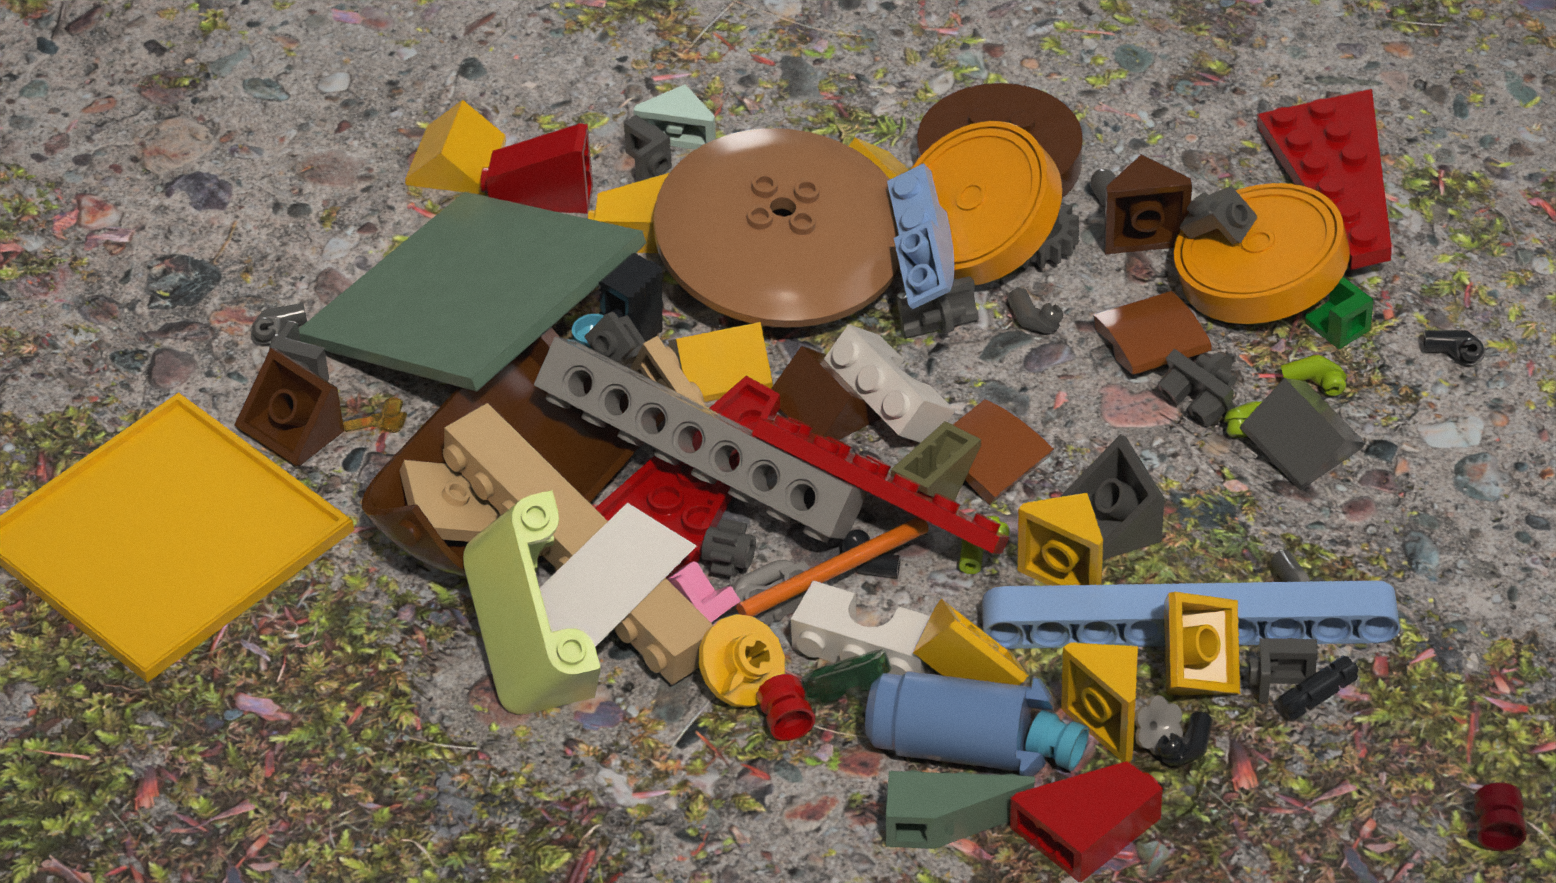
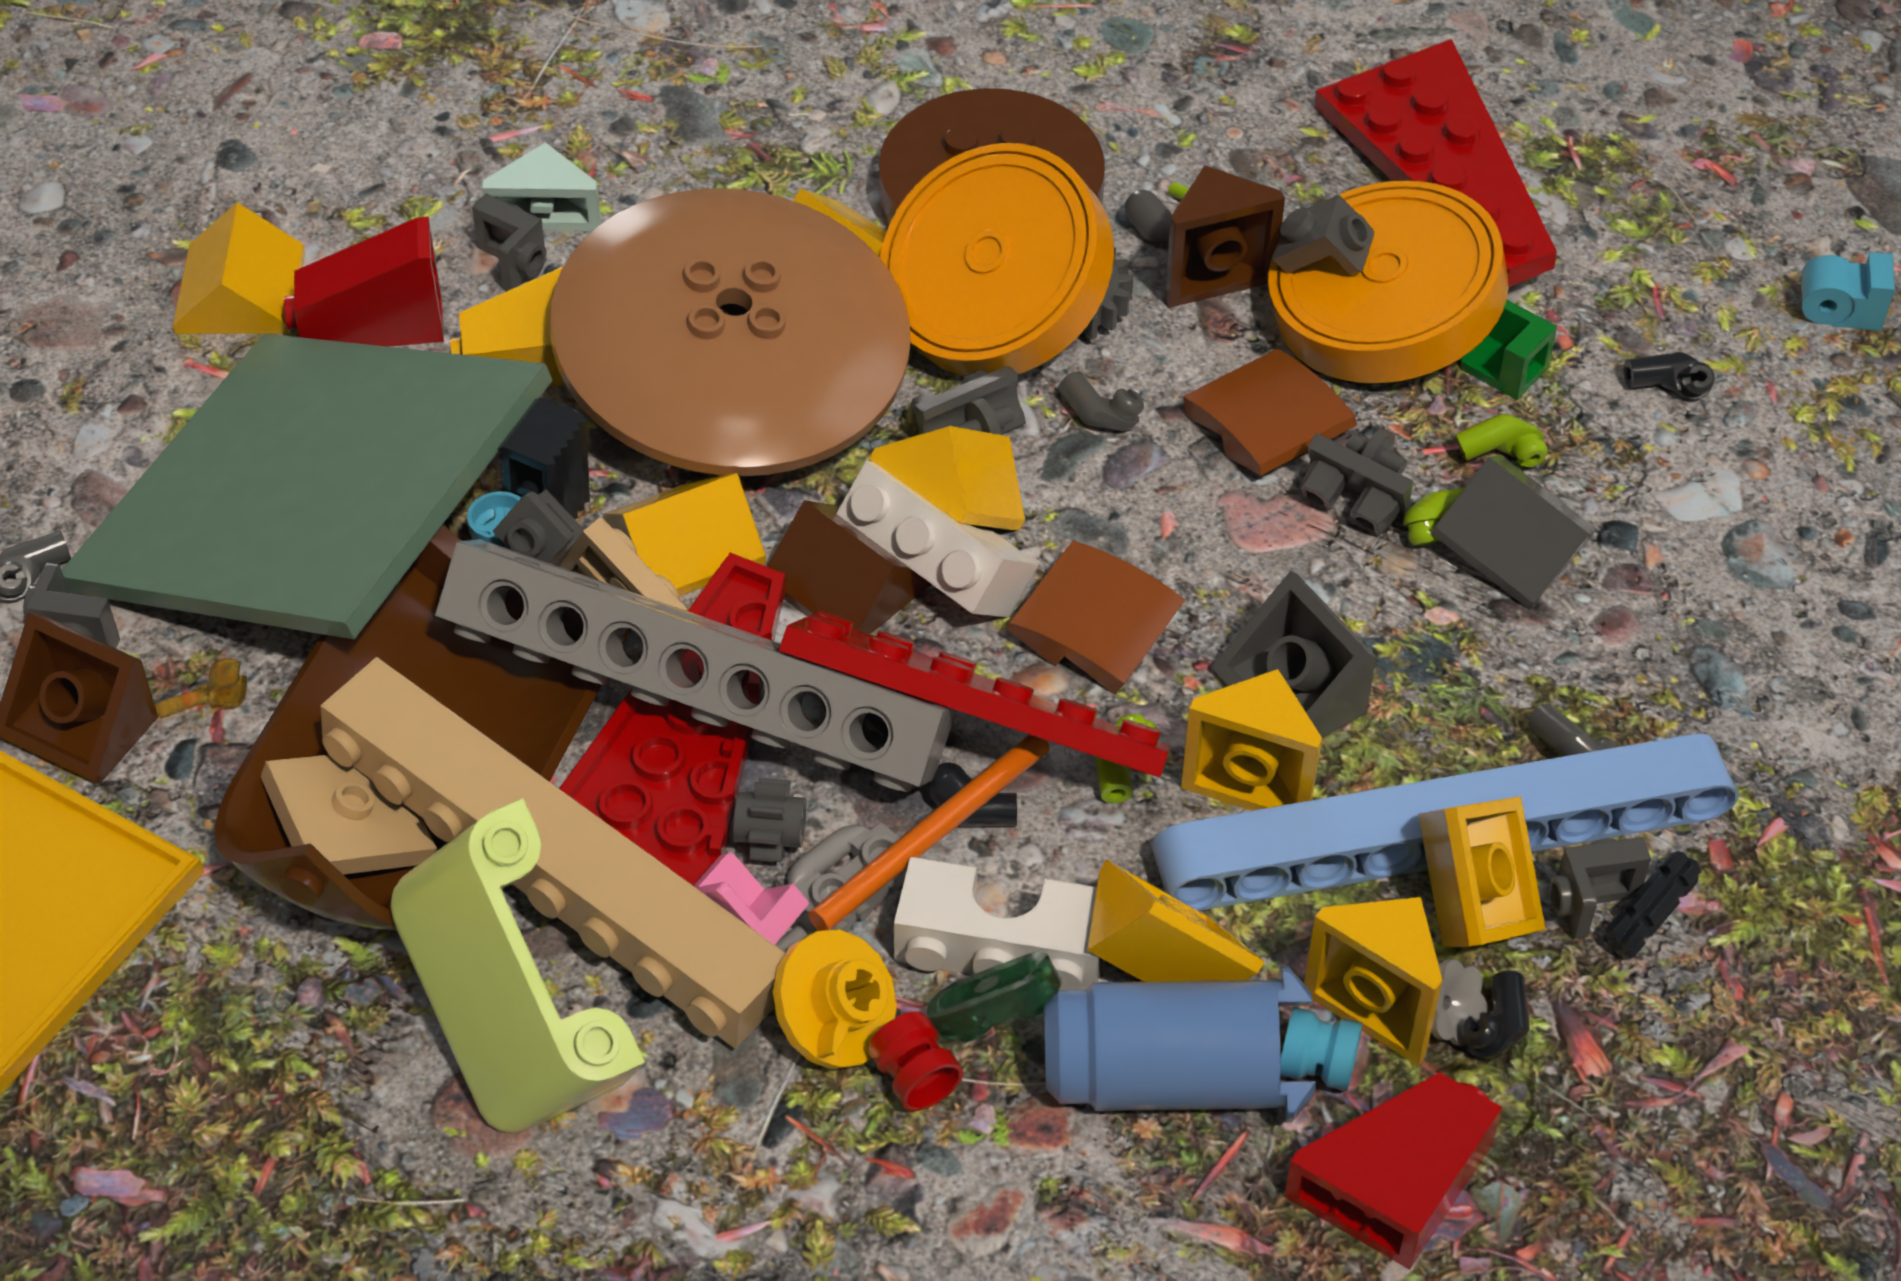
camera: 15 degrees left, 5 degrees up
(612, 573) = (619, 899): white sticker -> none
(915, 343) = (961, 473): none -> yellow slope
(924, 236) = (934, 320): light blue slope -> none
(940, 461) = (1042, 644): olive slope -> none
(946, 807) = (1184, 1187): sand green slope -> none

